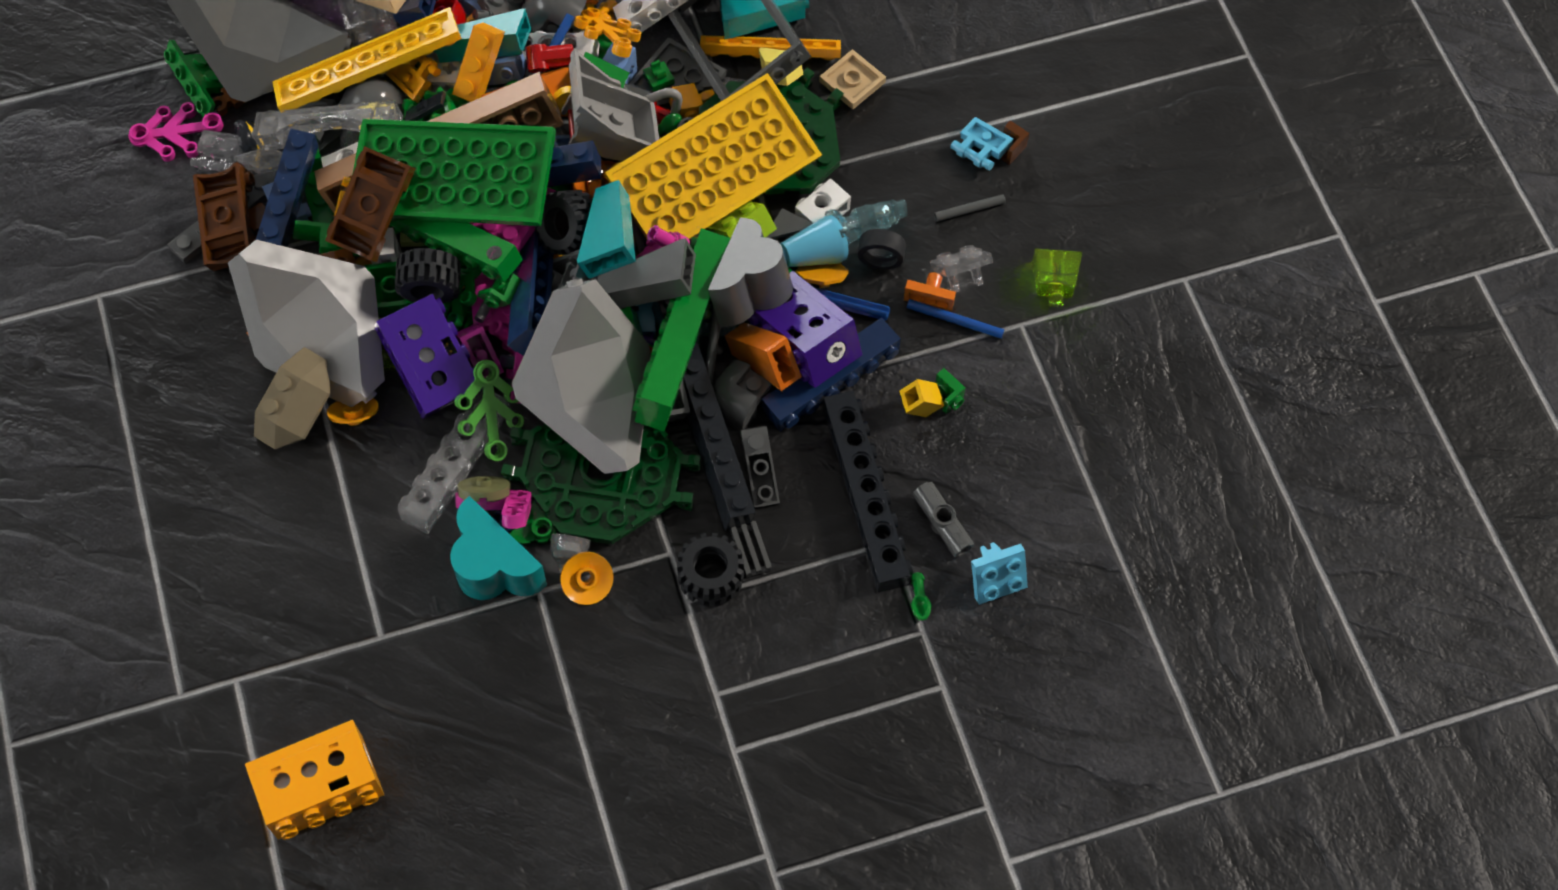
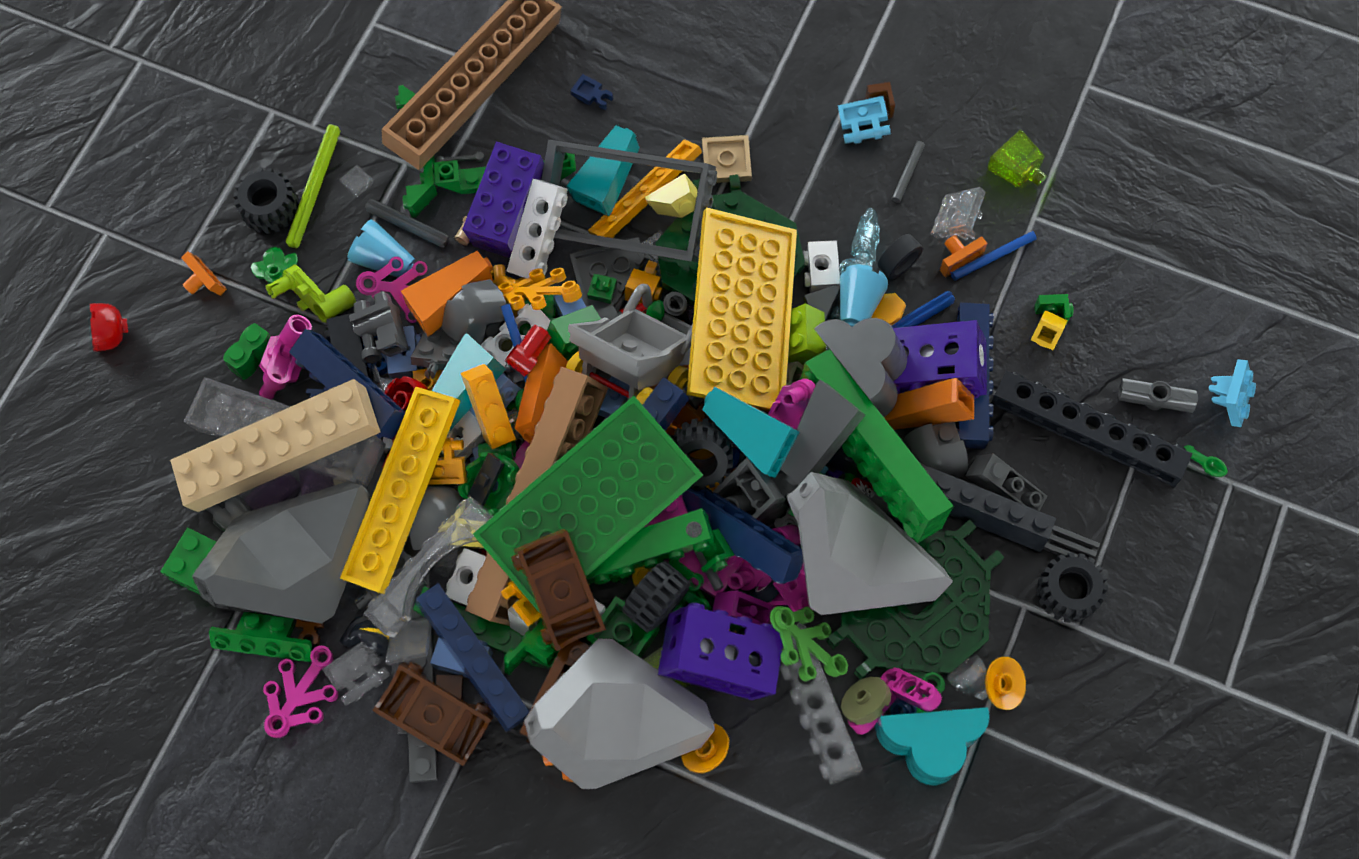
camera: 45 degrees left, 5 degrees up
(293, 400) = (666, 786): dark tan wedge -> none

